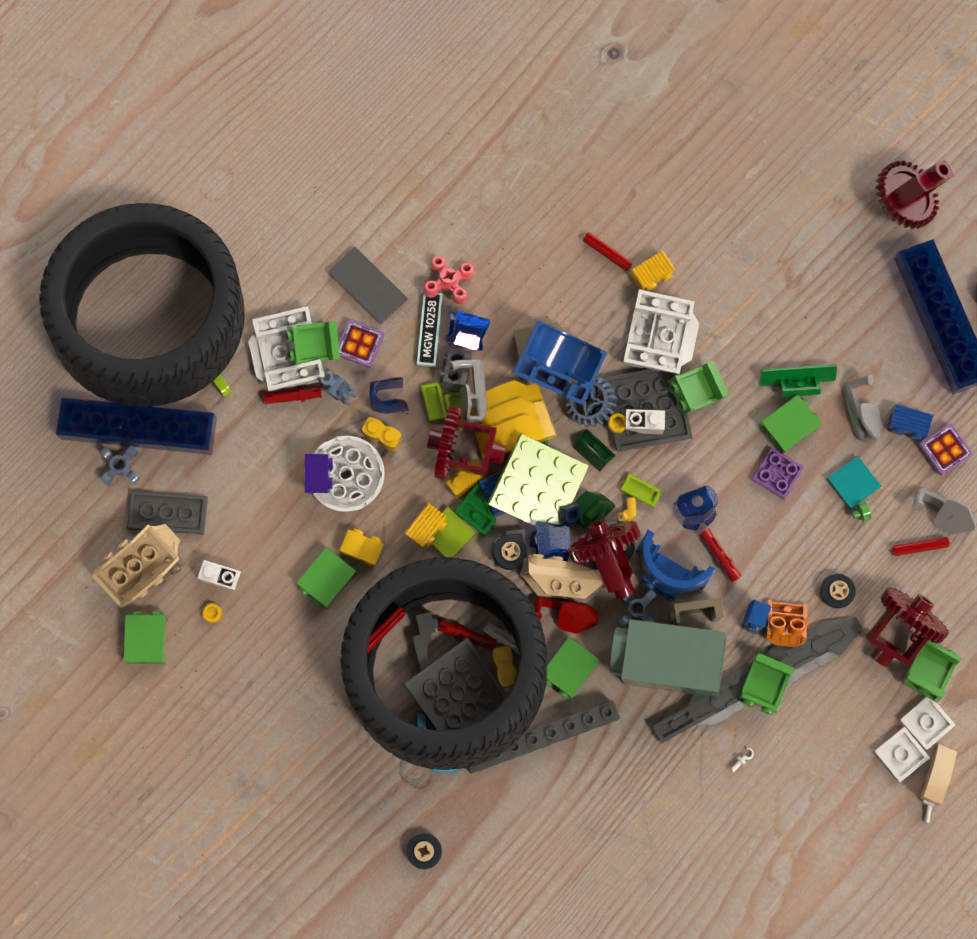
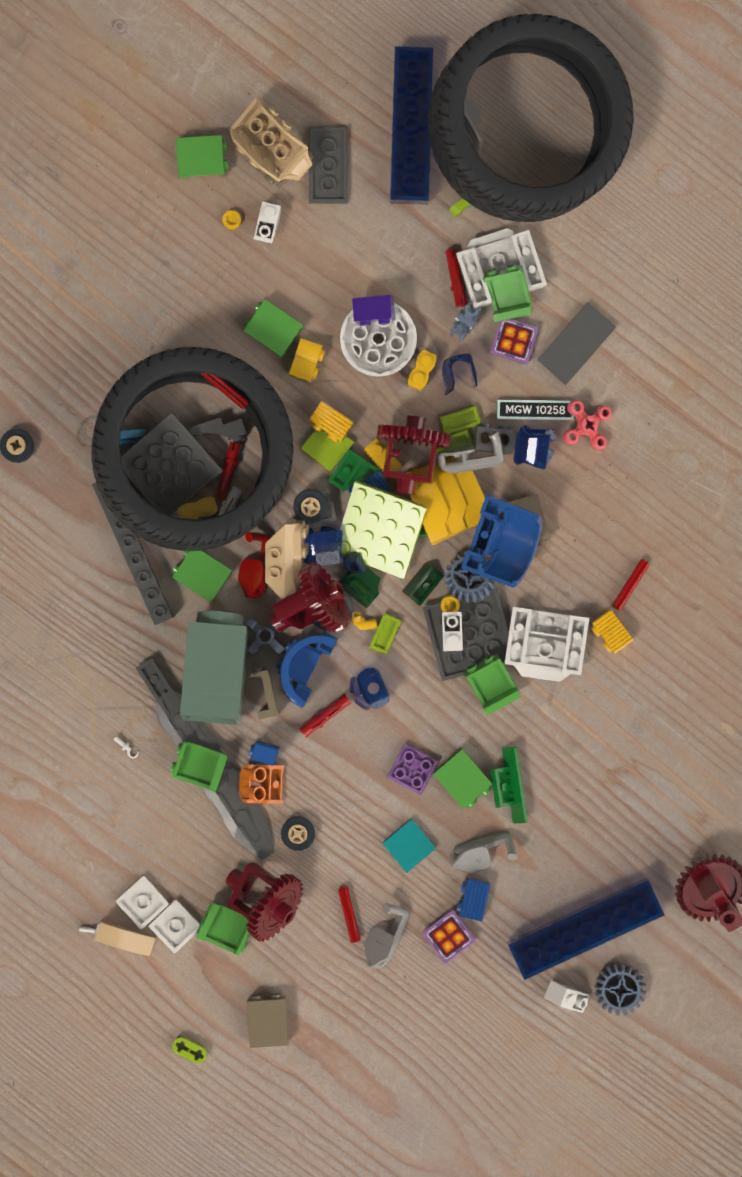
camera: 85 degrees right, 10 degrees up
(109, 476) = (362, 106): sand blue pin -> none
(862, 511) = (378, 854): bright green tile -> none

